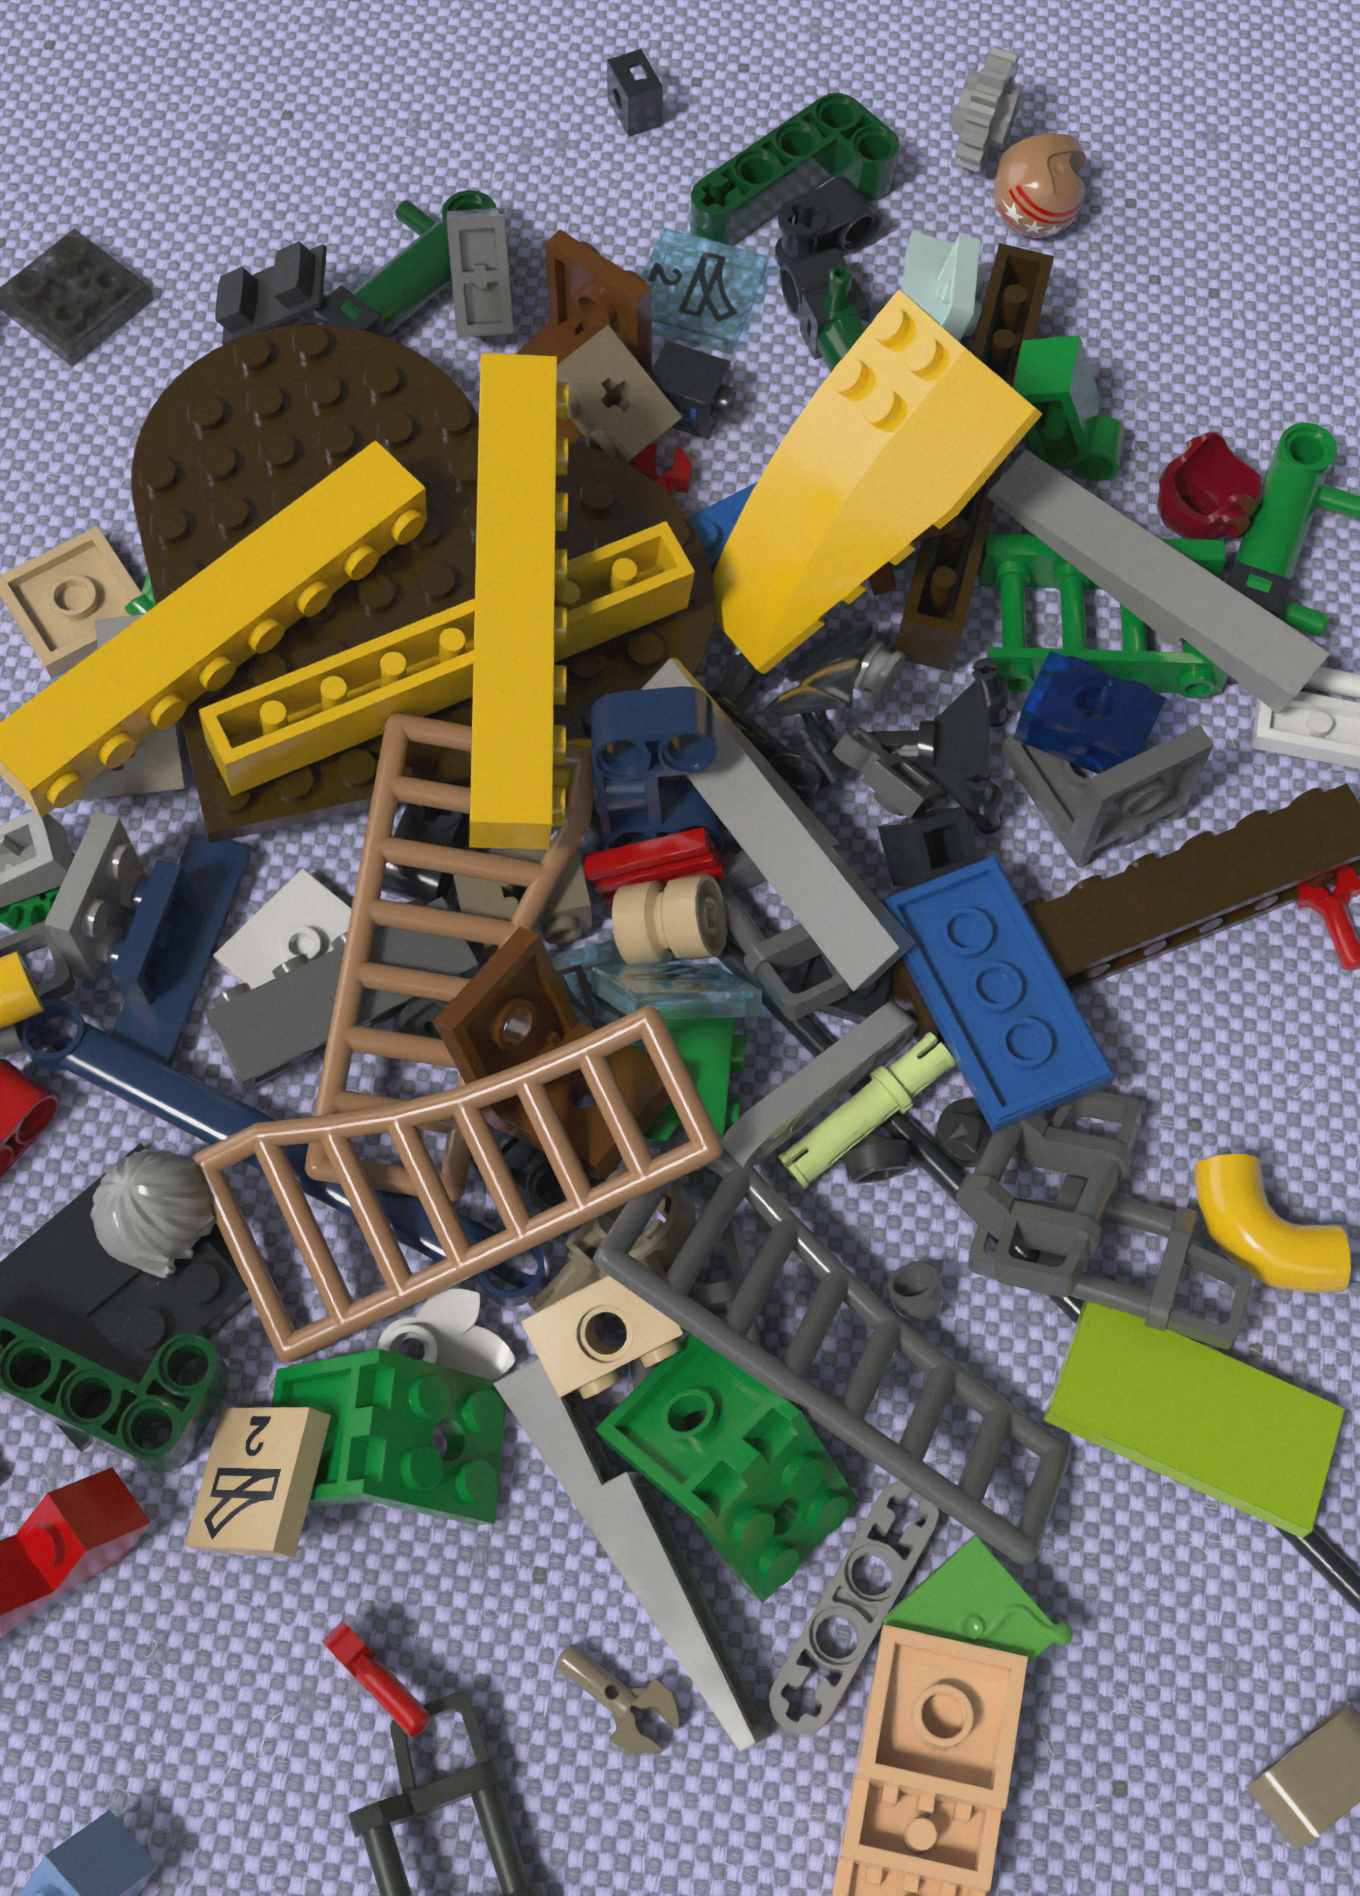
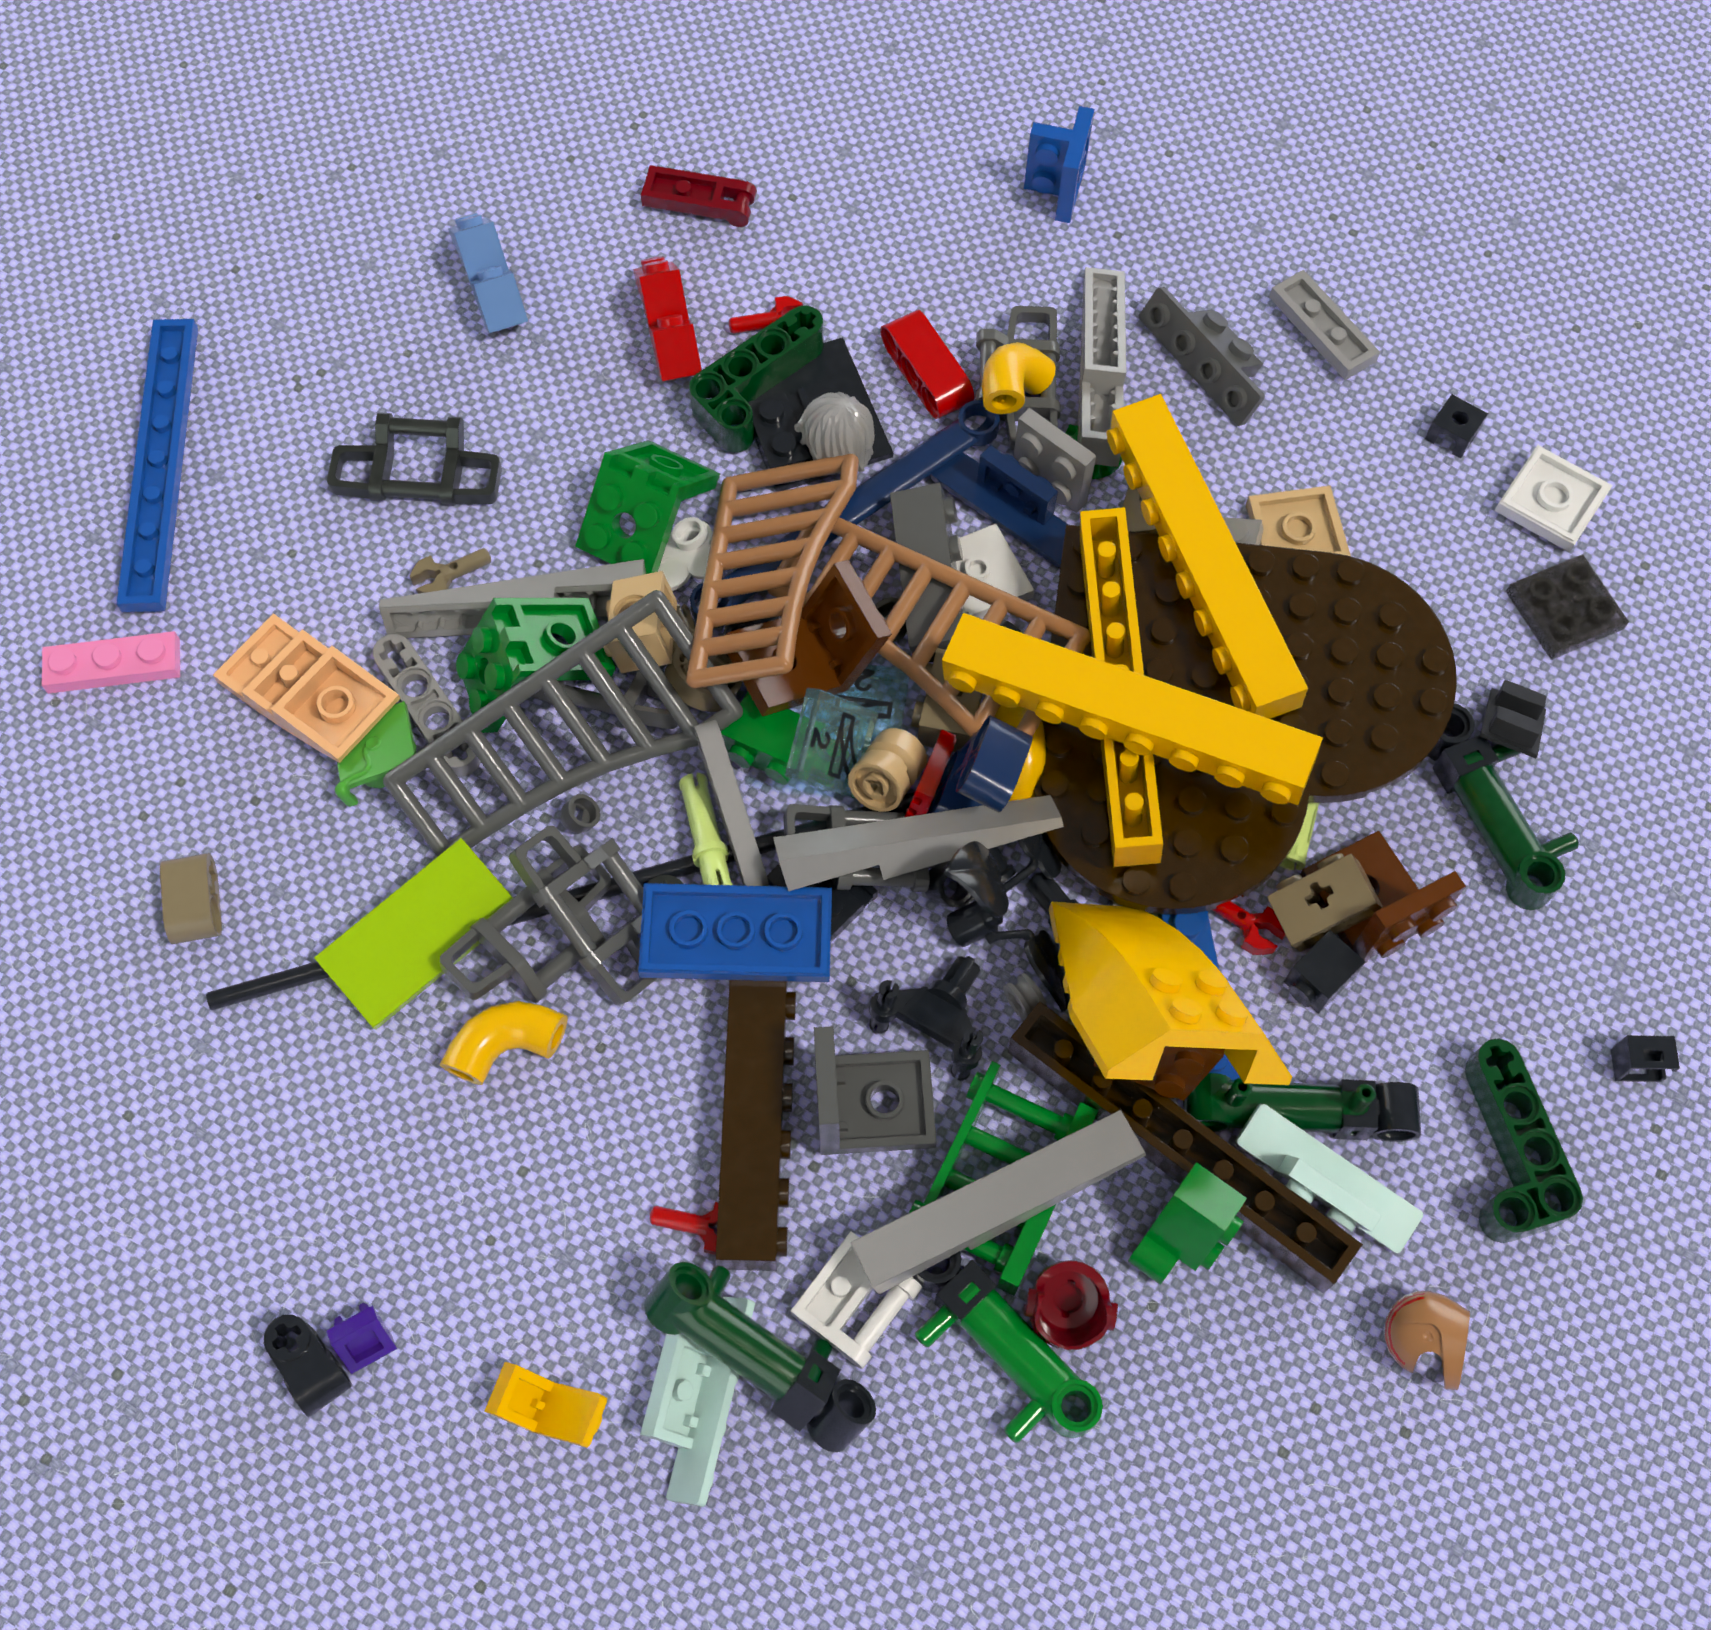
camera: 115 degrees right, 0 degrees up
(258, 1481) = (655, 433): tan tile -> none
(377, 1679) = (539, 455): red bar -> none
(480, 272) = (1479, 850): dark grey hinge -> none
(702, 289) = (1426, 1029): clear light blue tile -> none
(826, 220) = (1455, 1154): black piece -> none
(877, 1160) = (672, 830): pearl dark grey tile -> none
(897, 782) = (926, 956): dark grey plate -> none
(927, 846) = (865, 952): black brick -> none
(987, 109) = (1522, 1321): light grey gear -> none
(1057, 726) = (920, 1076): clear blue brick -> none

